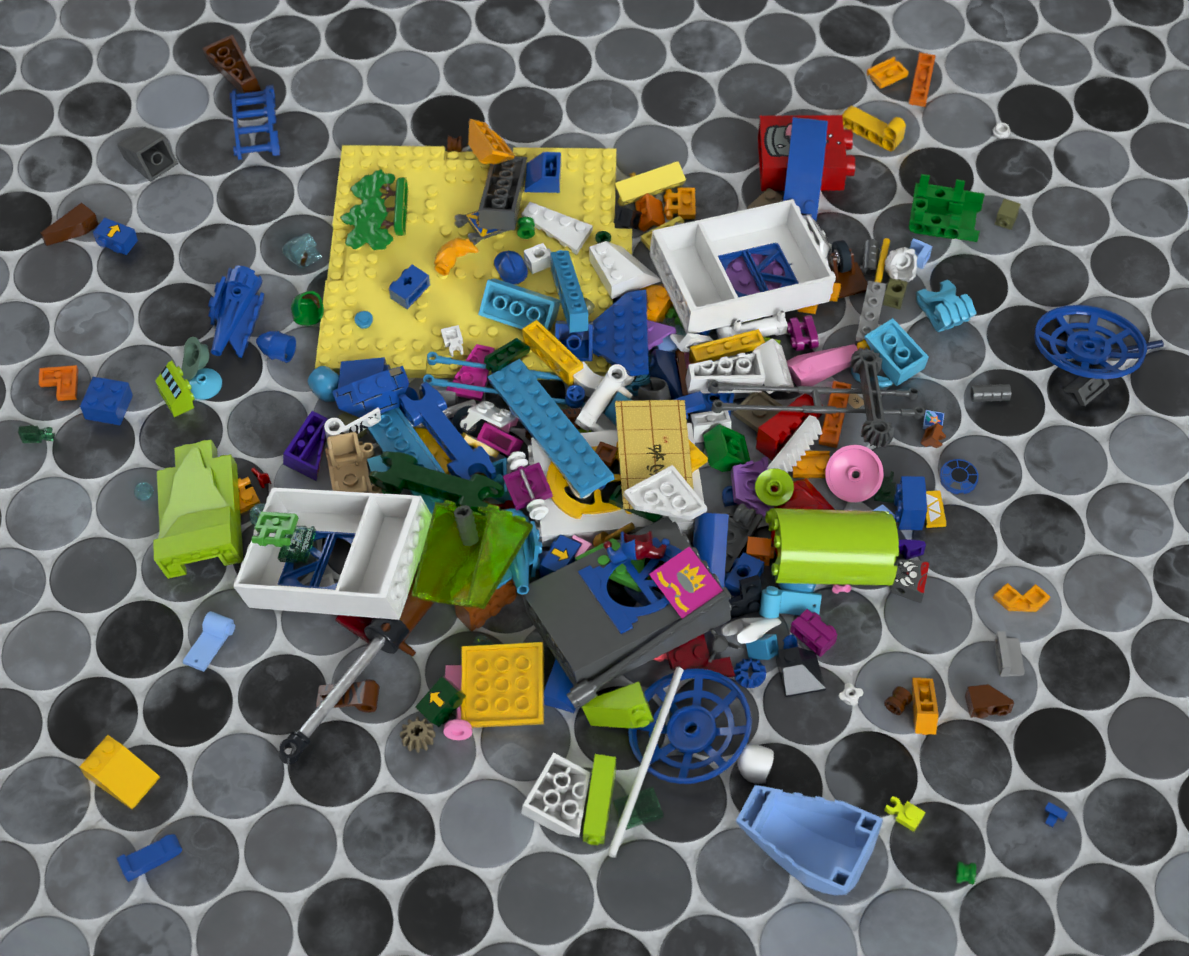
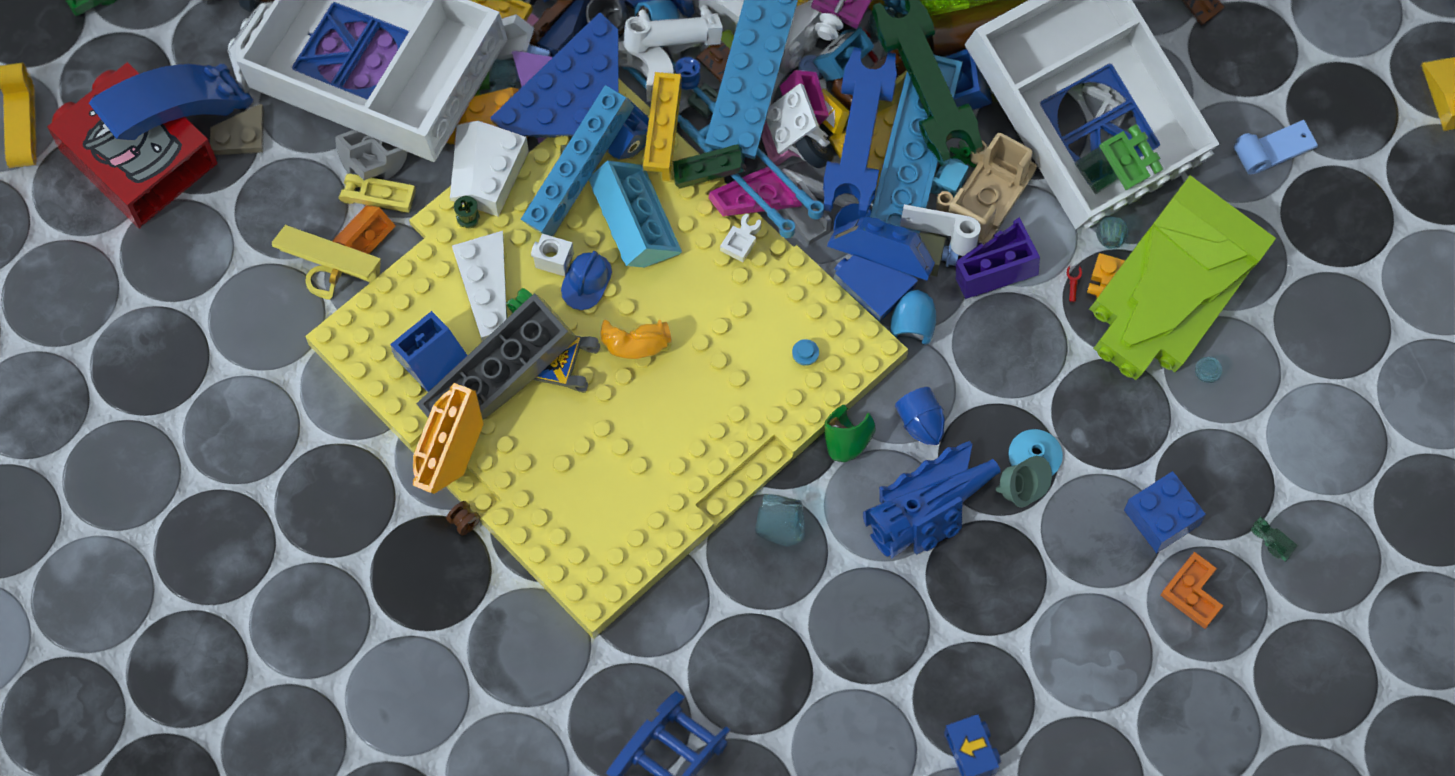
camera: 135 degrees left, 10 degrees up
(175, 389) = (1081, 453): lime slope -> none
(372, 212) = (663, 485): green plant -> none
(409, 286) = (709, 337): blue brick -> none
(627, 217) = (398, 236): black brick -> none
(686, 203) = (315, 208): light orange plate -> none

